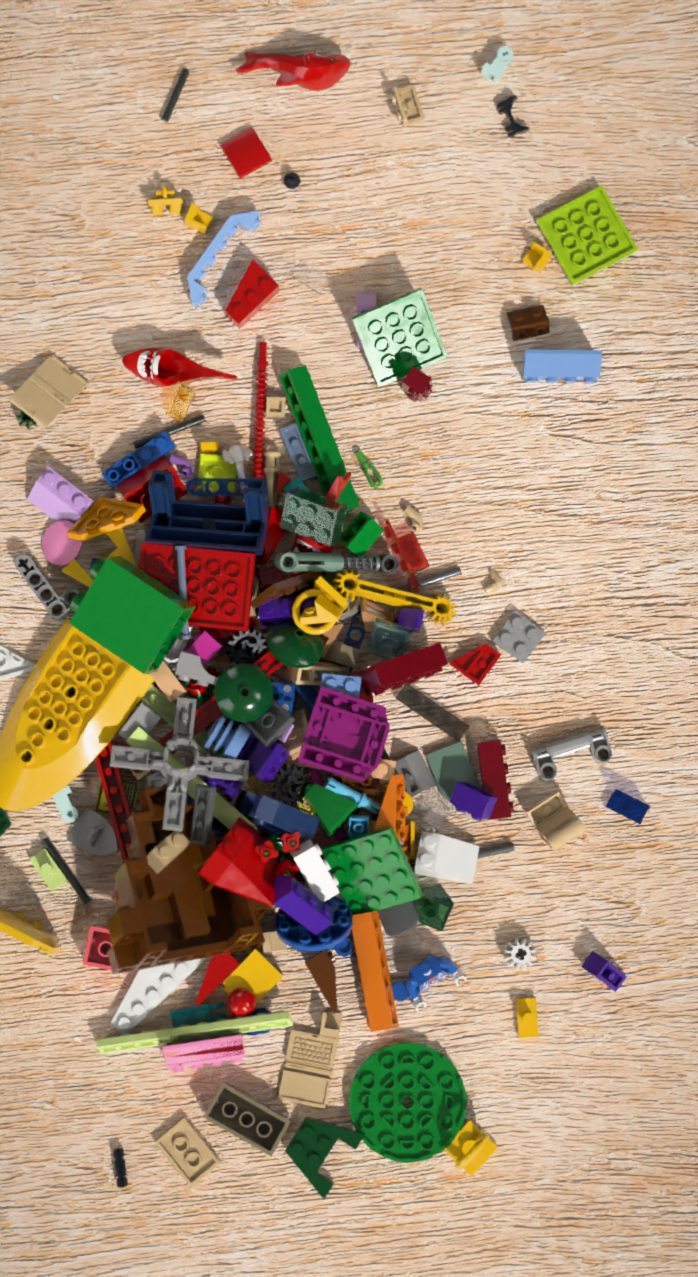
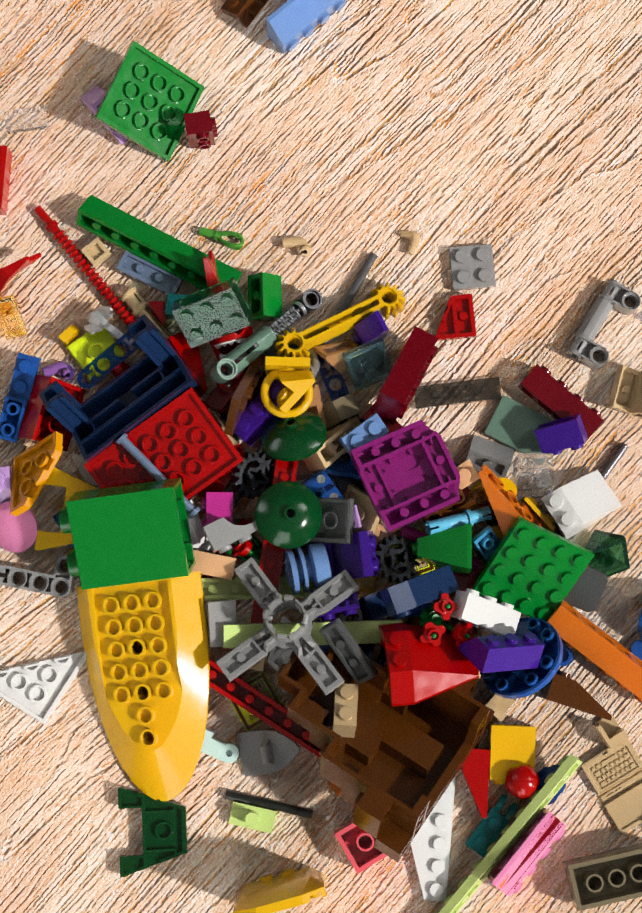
camera: 45 degrees left, 0 degrees up
(172, 430) = (24, 348): pearl dark grey bar -> none
(410, 554) = (319, 276): clear red bracket -> none

